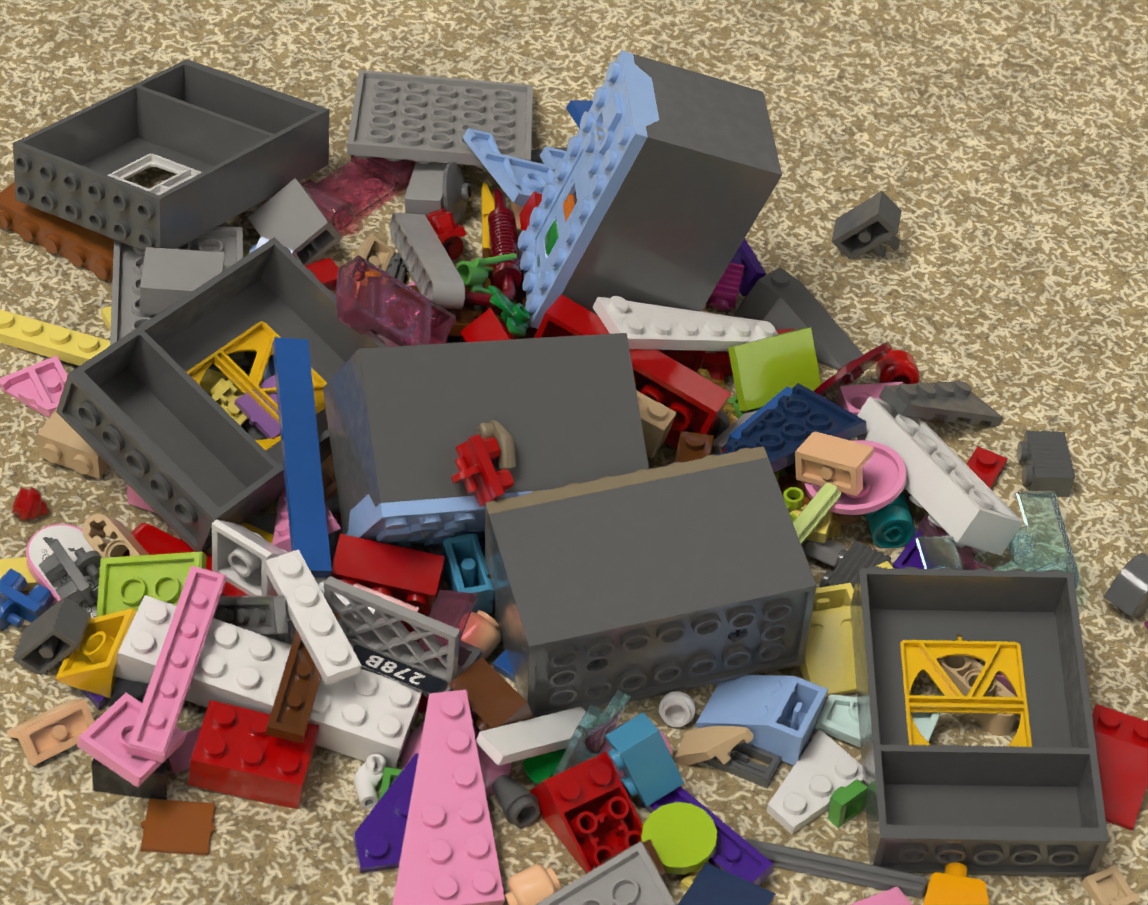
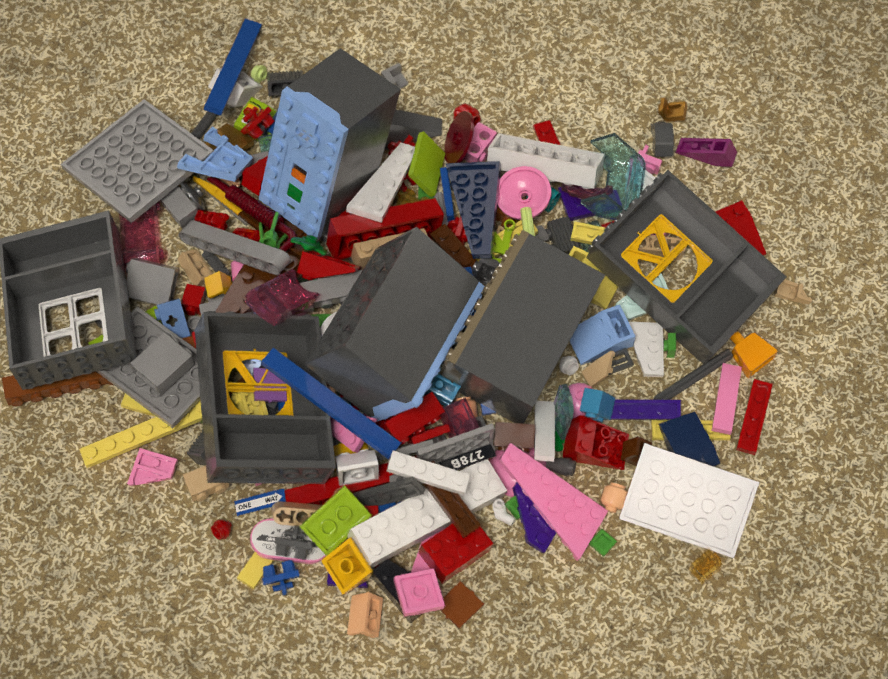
camera: 45 degrees left, 20 degrees up
(52, 636) = (320, 578): dark grey brick -> none
(88, 507) = (259, 501): none -> sticker
(176, 664) = (401, 544): bright pink tile -> none
(478, 471) = (432, 350): red hips -> none
(505, 440) = (423, 325): dark tan arm -> none
(681, 836) = (638, 421): lime tile -> none
(832, 461) = (514, 195): light nougat panel -> none
(857, 275) = (395, 76): none -> light grey panel
(868, 227) = (375, 48): dark grey brick -> none
(940, 399) = (503, 117): dark grey wing -> none
(1046, 462) = (567, 108): dark grey brick -> none
(1089, 596) = (652, 164): none -> bright pink bracket

